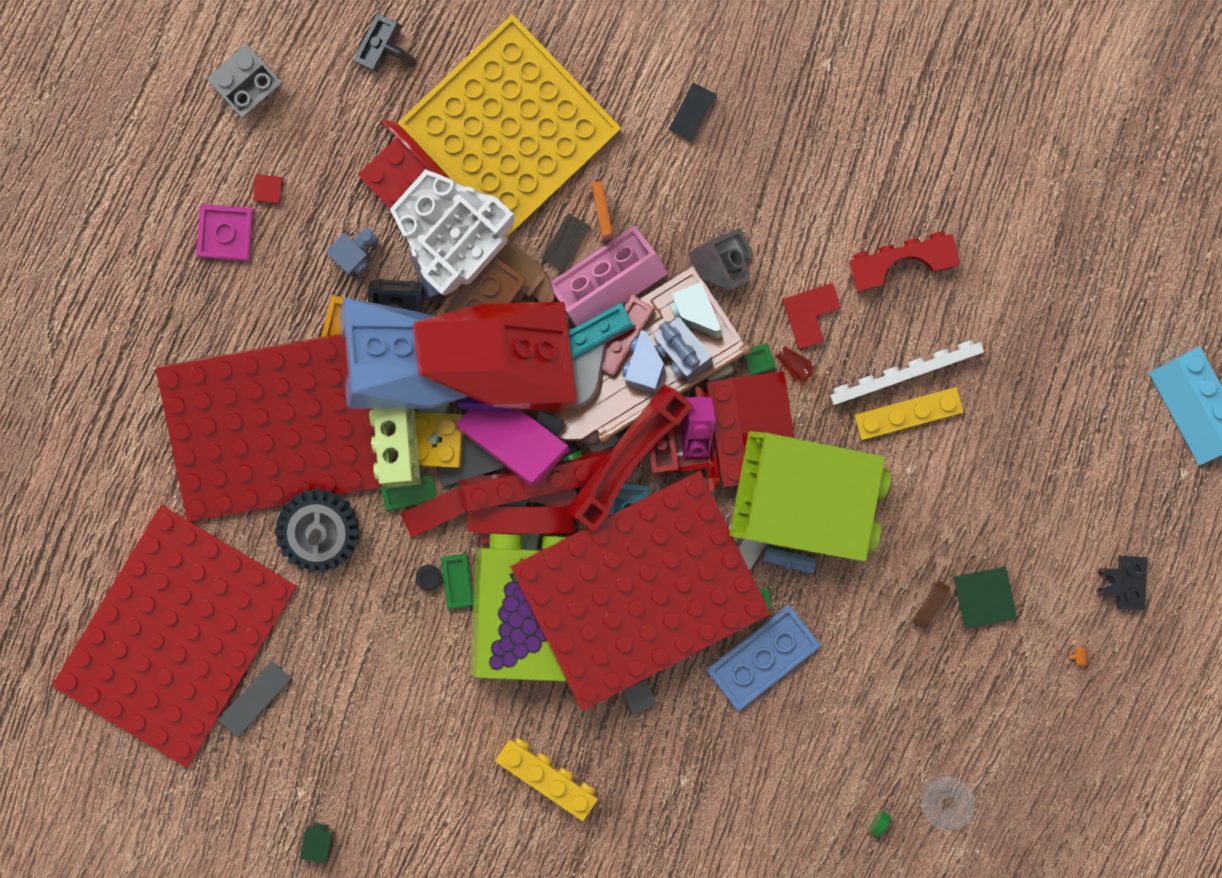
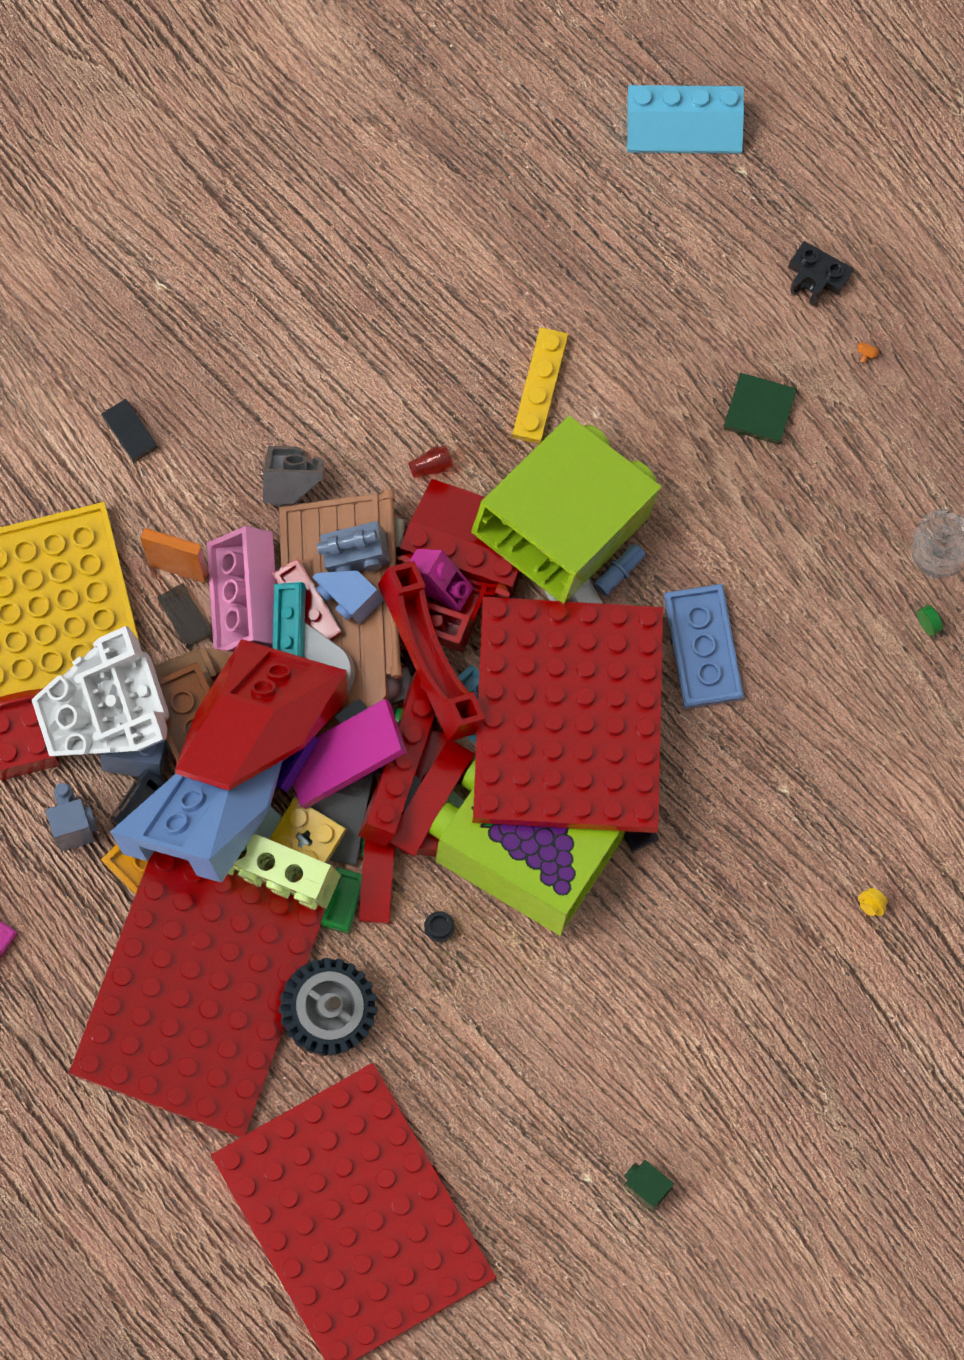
camera: 60 degrees left, 15 degrees down
(254, 699) = (464, 1169): dark grey tile -> none
(457, 581) = (459, 901): green tile -> none
(547, 779) = (709, 916): yellow brick -> none
(639, 696) = (675, 785): dark grey tile -> none
(695, 310) = (324, 516): light aqua slope -> none
(759, 359) = (407, 495): green tile -> none
(803, 311) = (382, 428): red tile -> none
(916, 368) = (500, 354): white plate -> none
(931, 605) = (739, 459): reddish brown beam -> none
(936, 253) = (400, 279): red arch -> none

